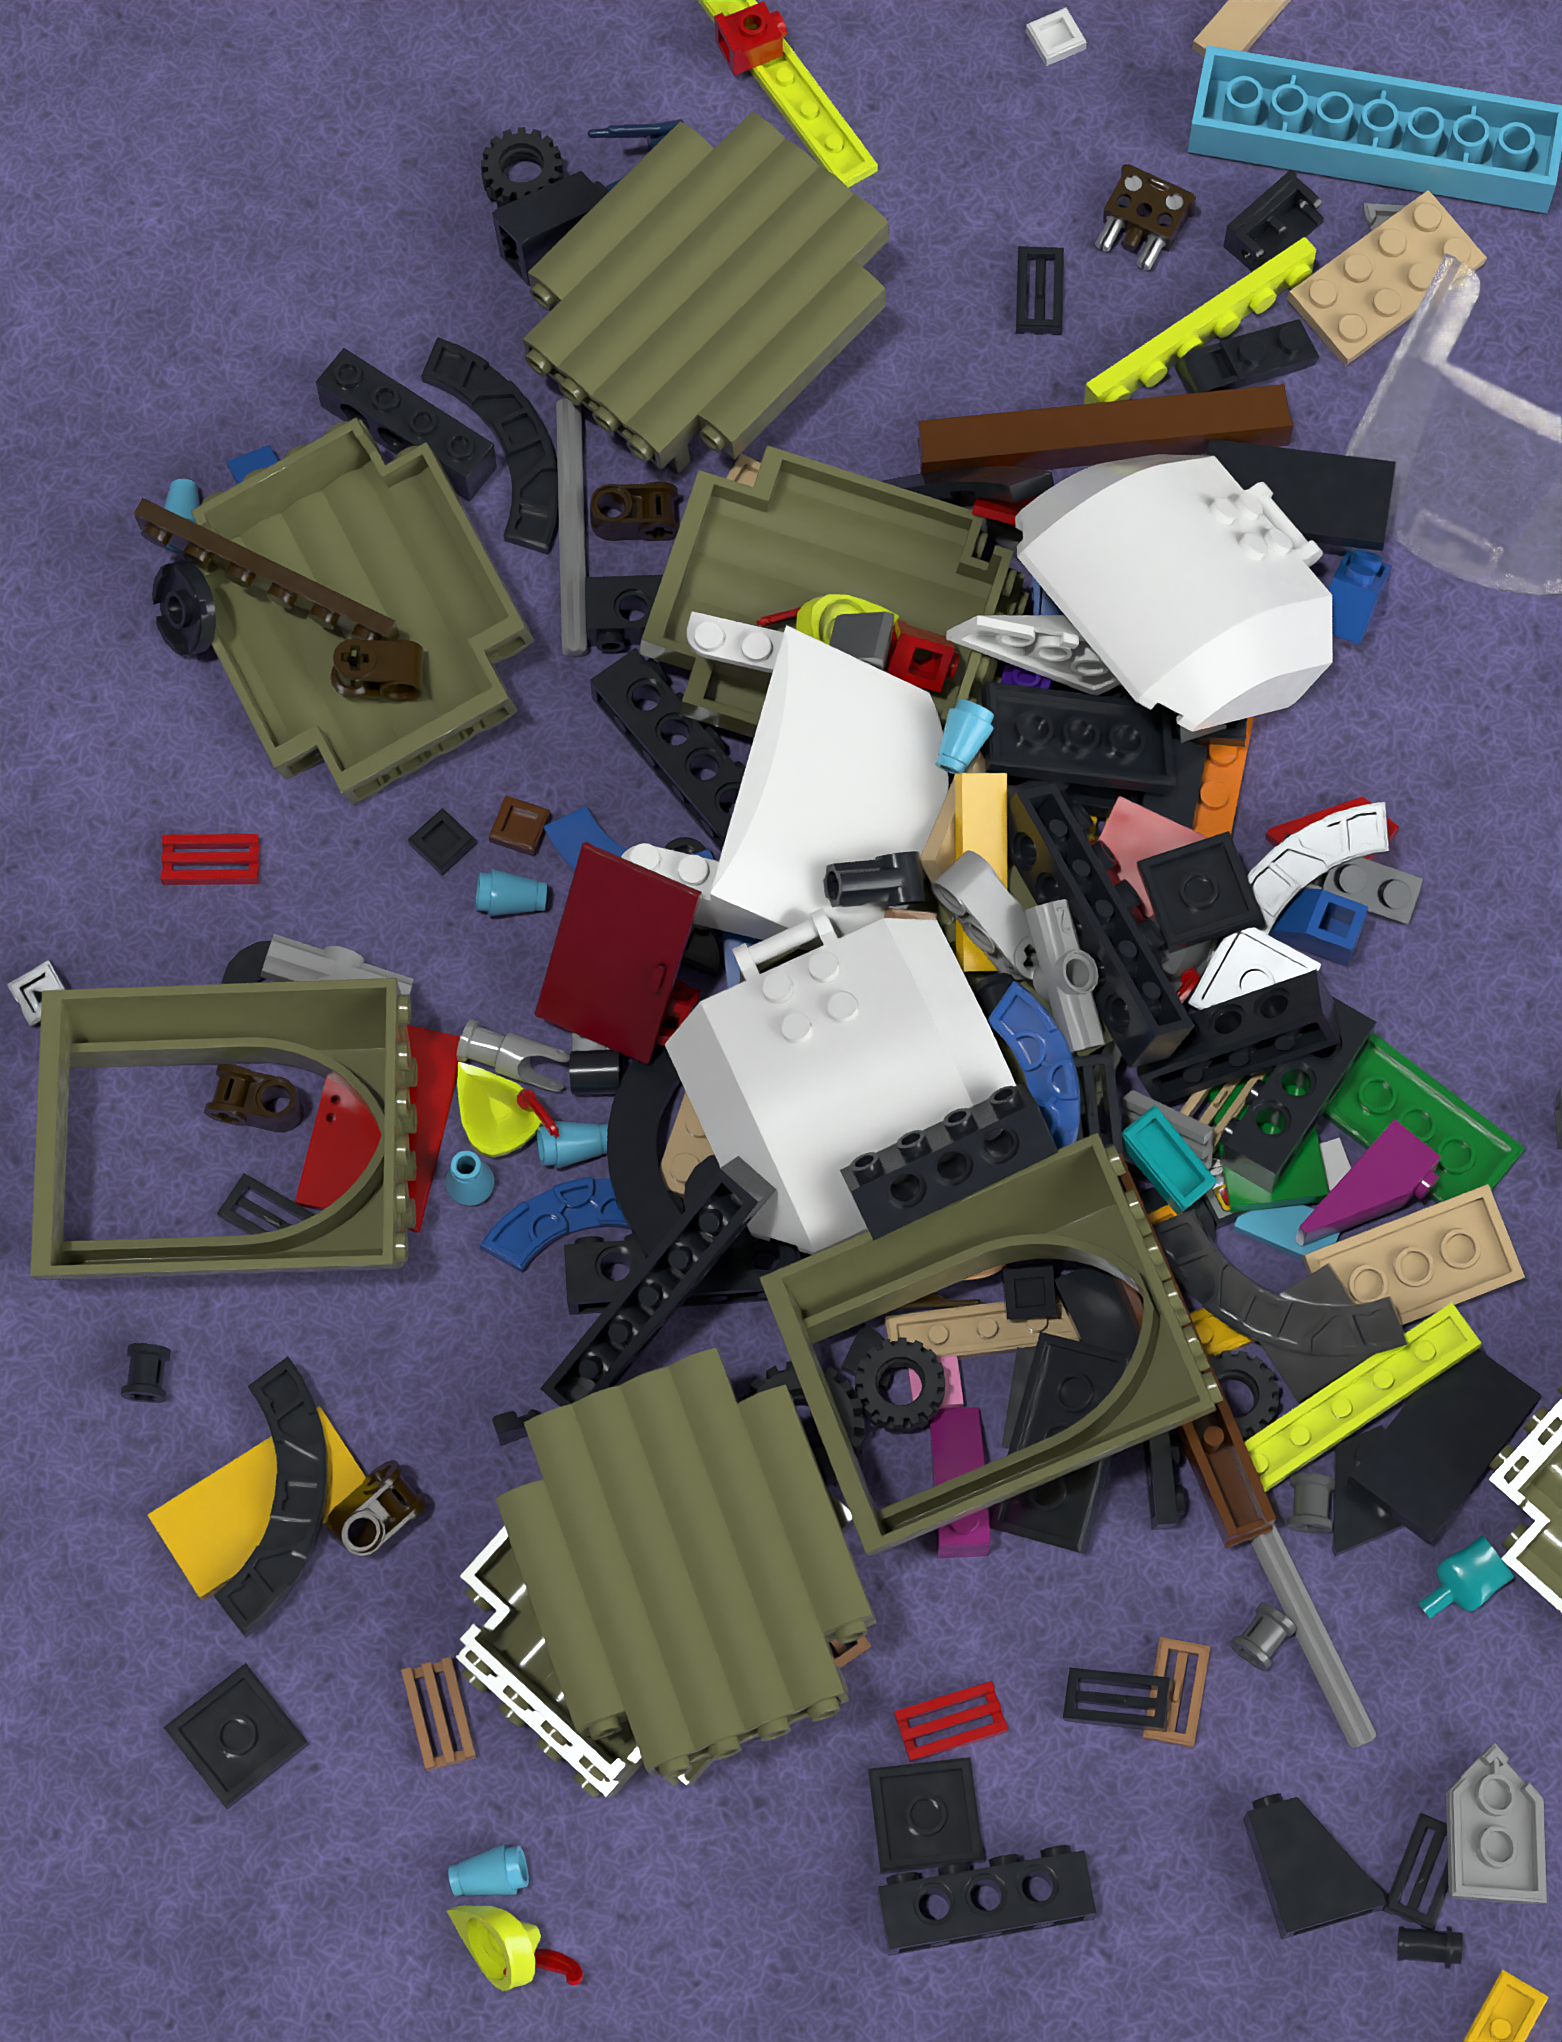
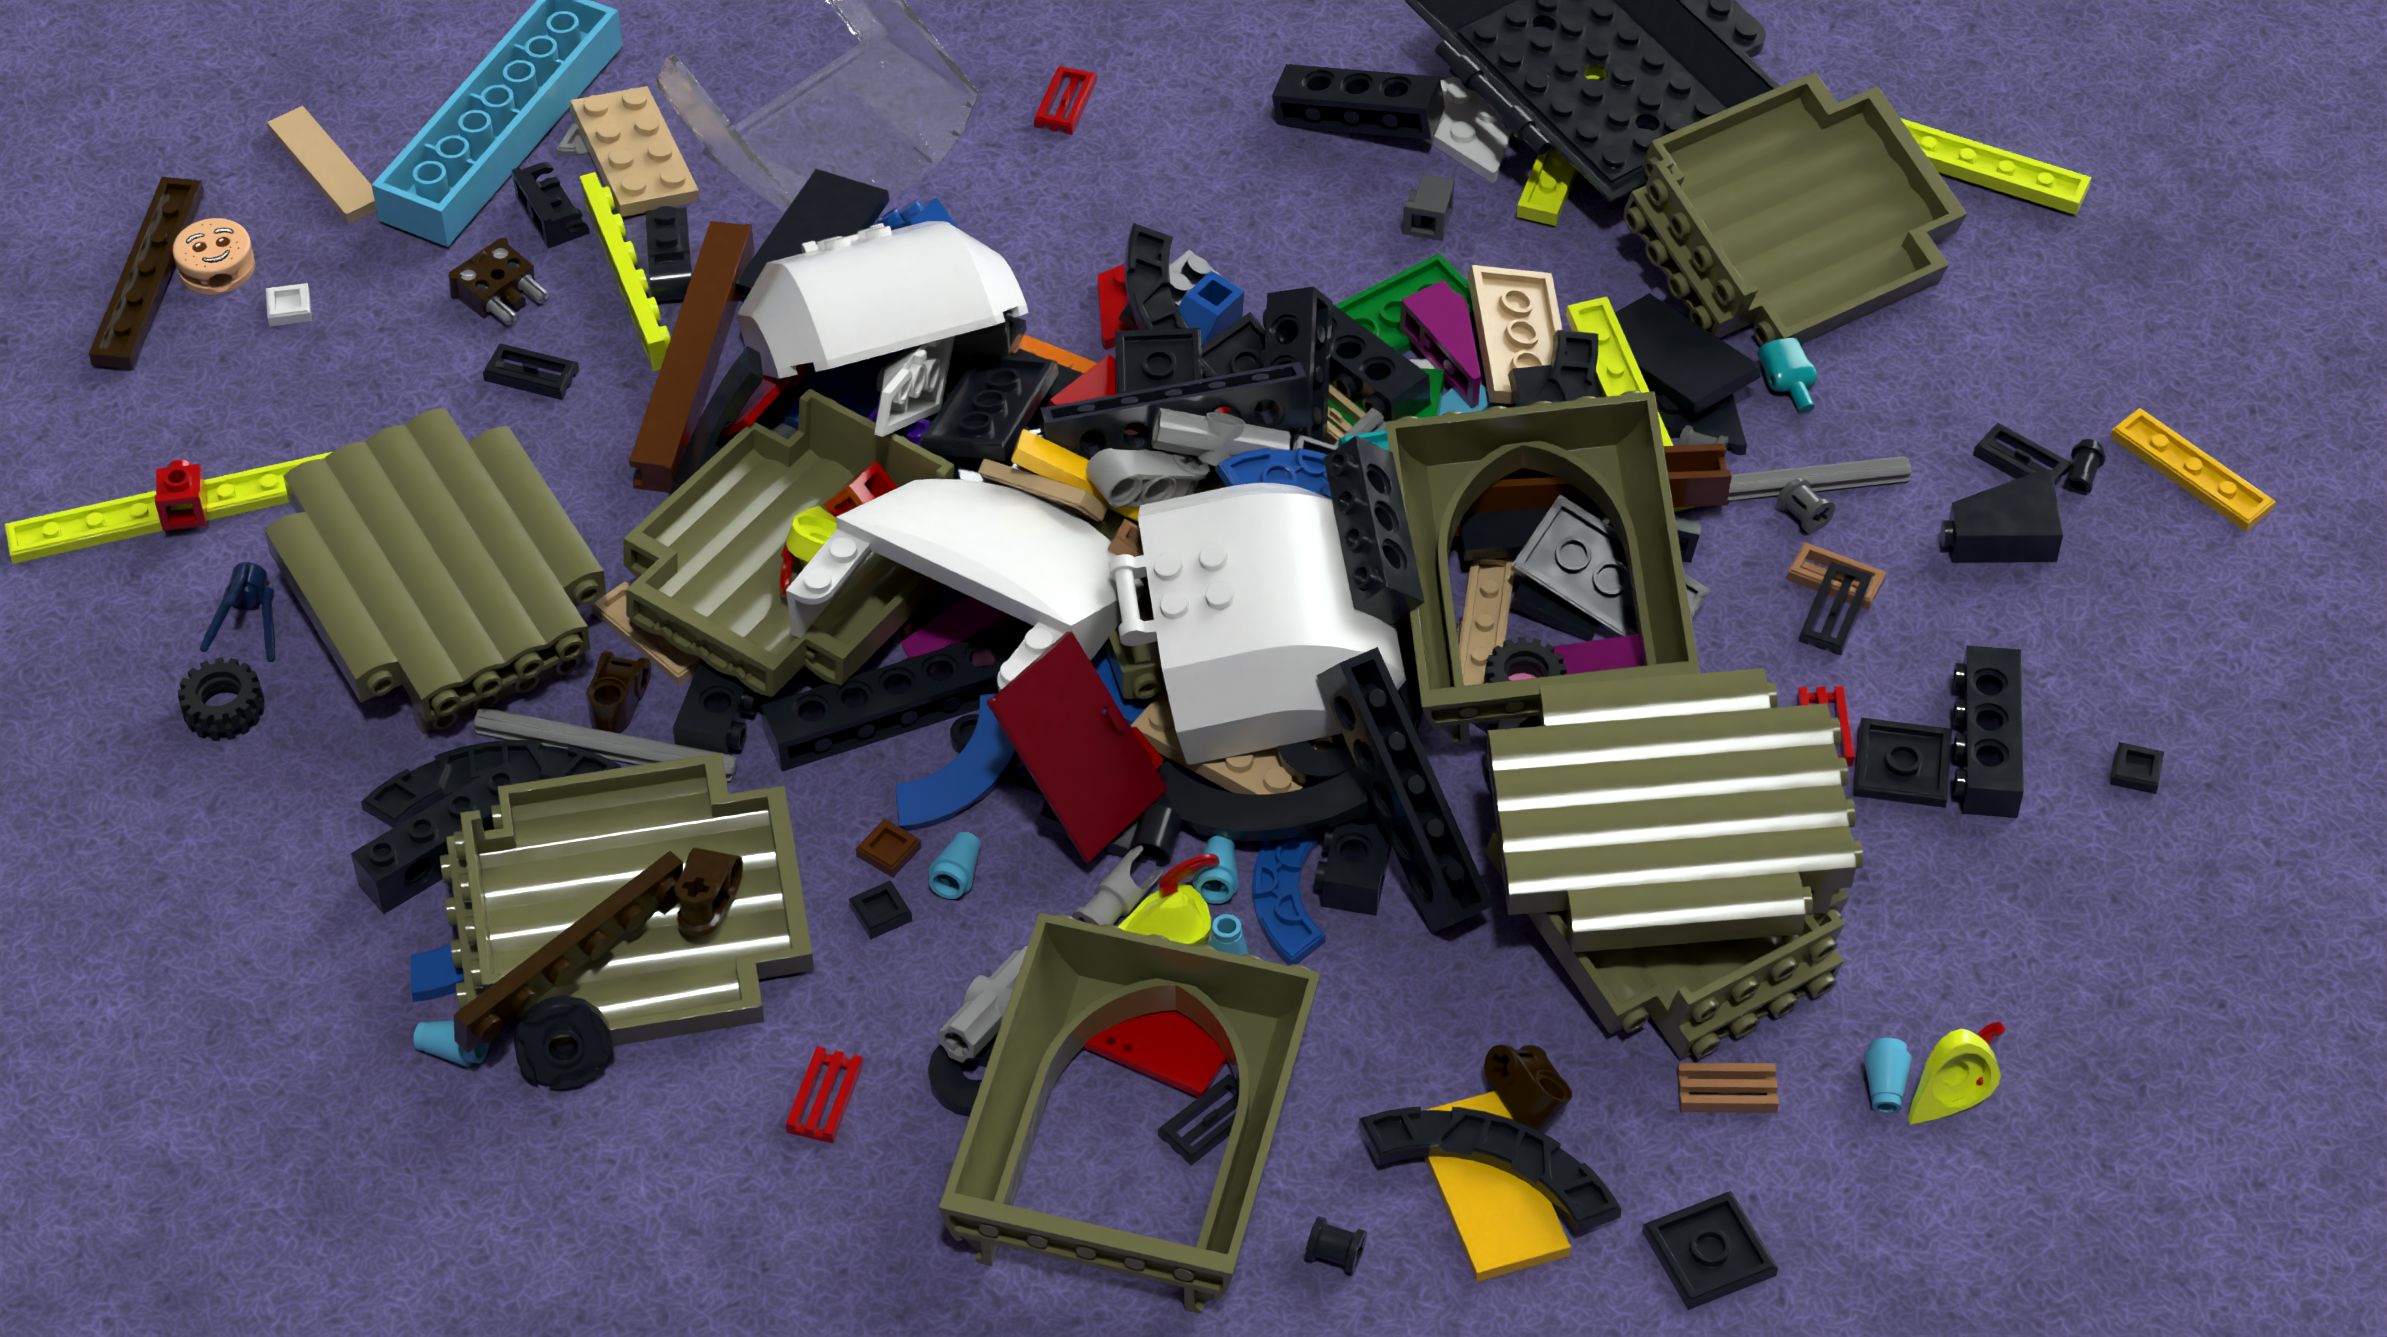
camera: 75 degrees left, 20 degrees down
(29, 987) = (913, 1258): tile -> none
(244, 1099) = (1087, 1107): dark brown piece -> none
(510, 1427) = (1475, 970): black tile -> none
(541, 219) = (298, 683): black slope -> none
(864, 636) = (855, 485): dark grey slope -> none
(887, 880) = (1090, 533): black piece -> none
(963, 735) = (971, 455): medium azure cone -> none
(1029, 1291) = (1468, 576): black tile -> none
(1495, 1834) = (2003, 404): light grey tile -> none

